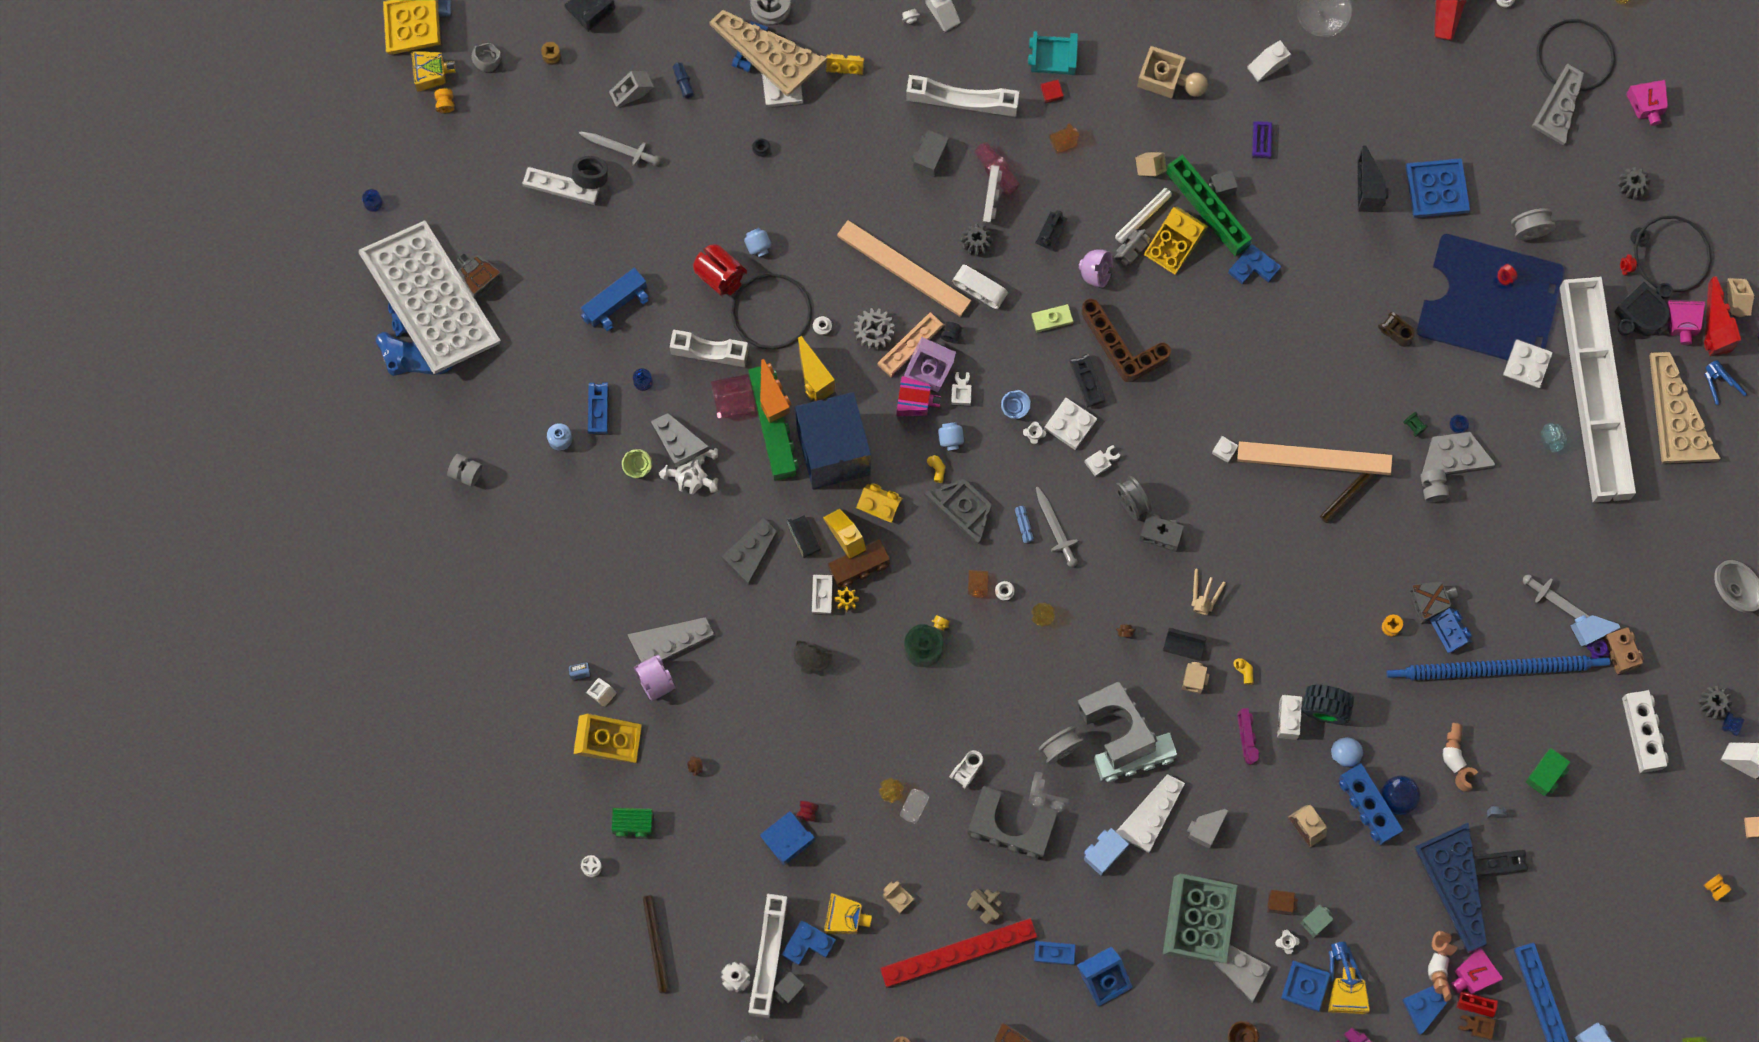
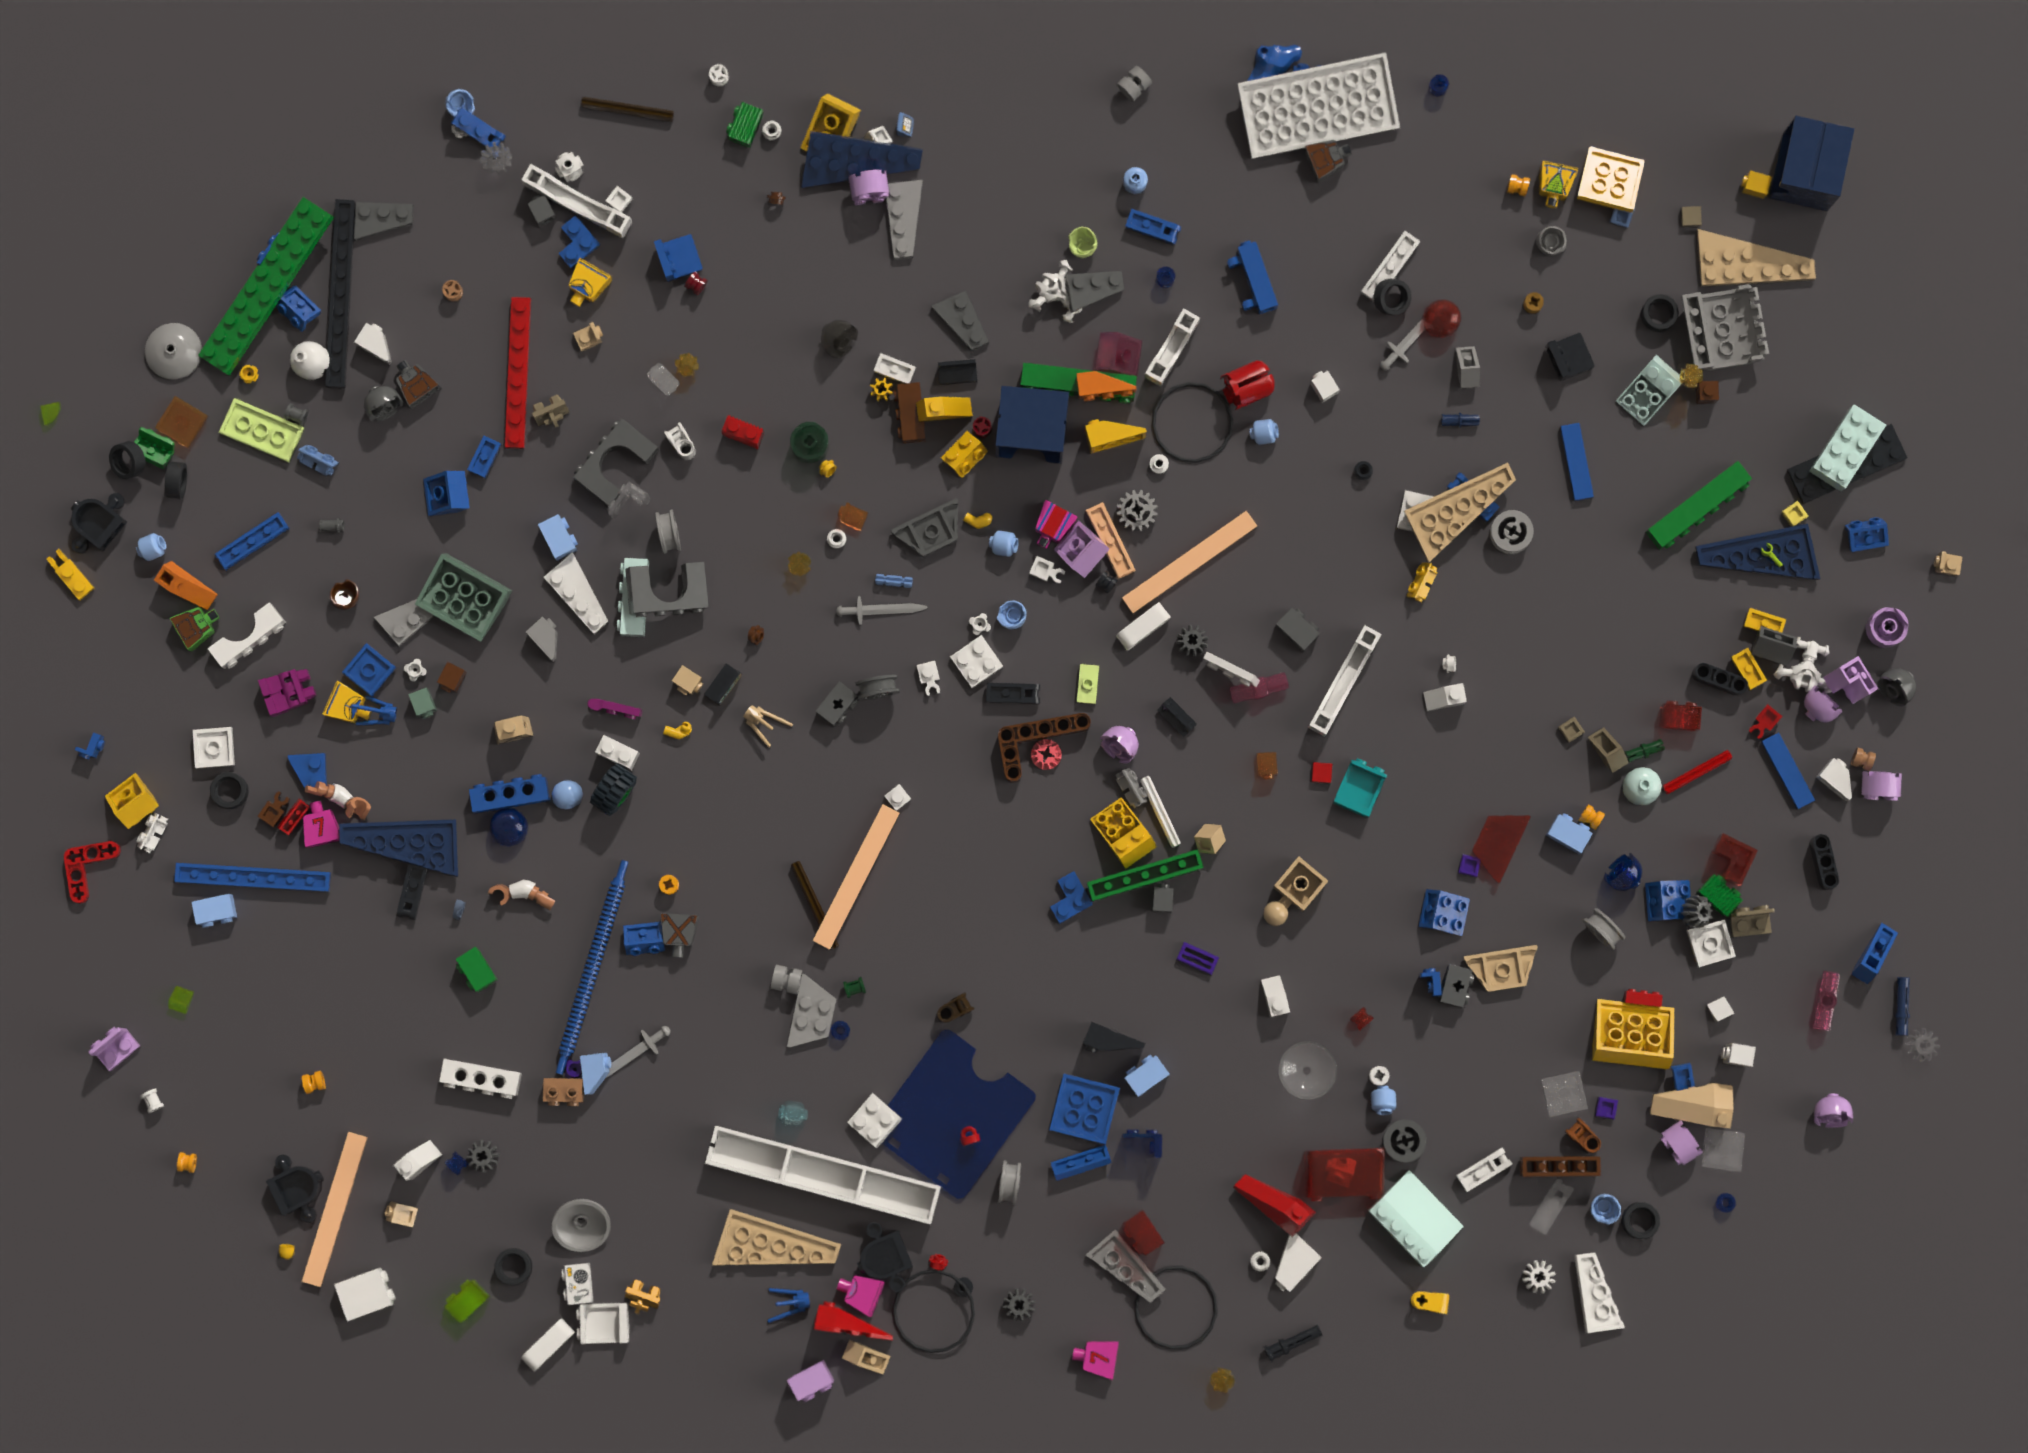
camera: 110 degrees right, 10 degrees up
(593, 125) = (1441, 318): none -> clear red cylinder
(628, 789) = (771, 124): none -> white plate
(632, 712) = (837, 157): none -> dark blue wing
(695, 205) = (1324, 386): none -> white brick
(750, 917) = (619, 199): none -> white plate
(846, 491) = (982, 423): none -> dark red wheel
(936, 712) = (742, 432): none -> red brick
(1138, 337) = (1037, 757): none -> coral gear
(1386, 145) = (1146, 1075): none -> light blue brick
(1439, 122) = (1155, 1146): none -> clear blue bracket
(1486, 174) = (1081, 1162): none -> blue plate
(1527, 98) = (1143, 1233): none -> clear red brick

